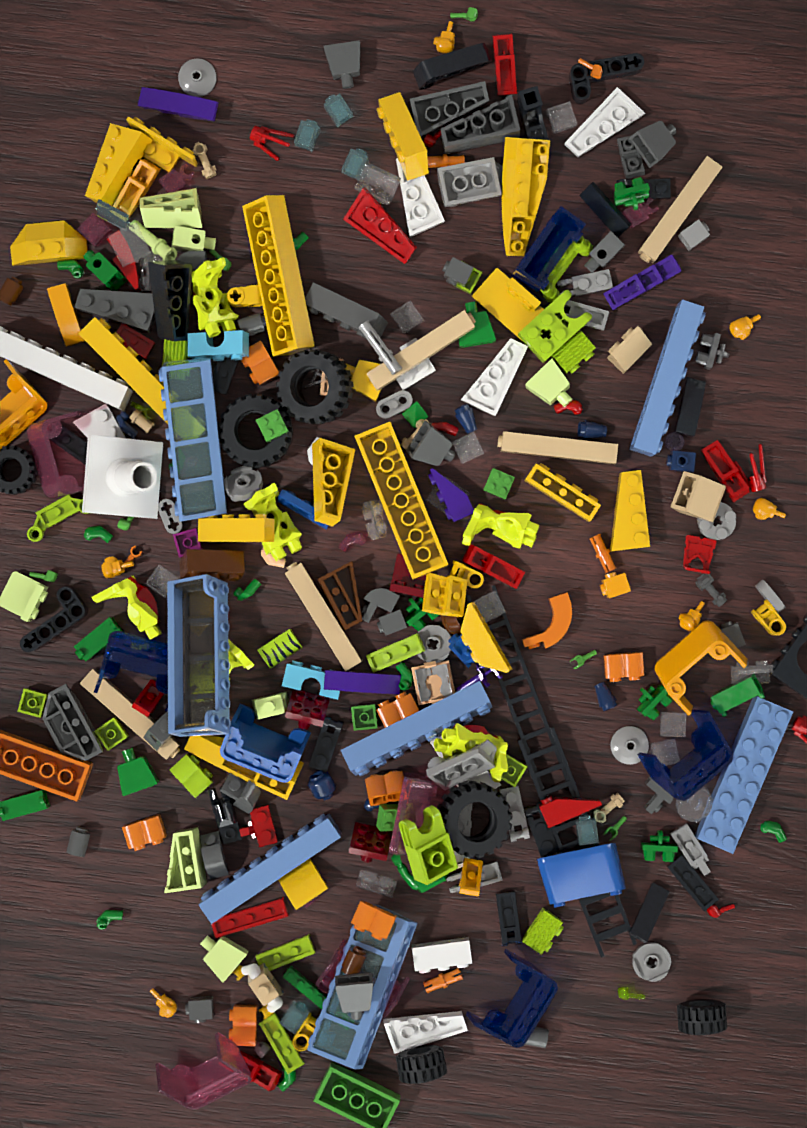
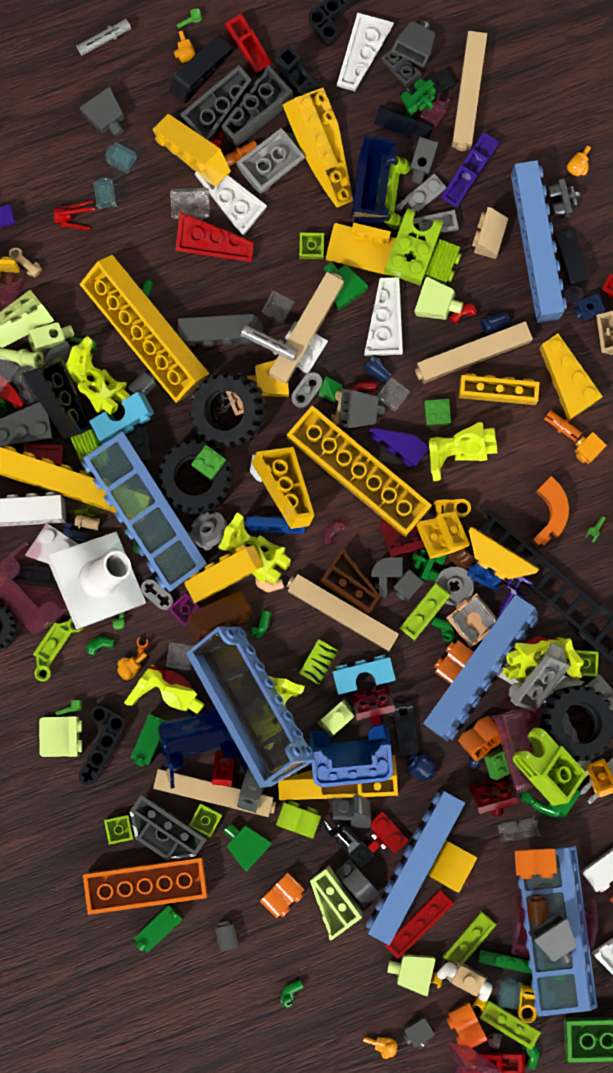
camera: 25 degrees left, 5 degrees down
(248, 296) = (125, 361): yellow piece -> none
(260, 364) = (168, 416): orange brick -> none
(355, 163) = (160, 196): clear light blue brick -> none
(361, 682) = (408, 653): dark purple slope -> none
(364, 717) = (427, 684): bright green piece -> none
(378, 528) = (349, 506): clear hinge -> none
(457, 272) = (302, 243): dark grey brick -> none
(490, 606) = (489, 523): clear piece -> none
(493, 566) = (471, 488): red slope -> none
(561, 117) = (322, 64): clear piece -> none
(596, 69) = (331, 5): orange hand -> none
(694, 234) = (493, 105): light grey brick -> none

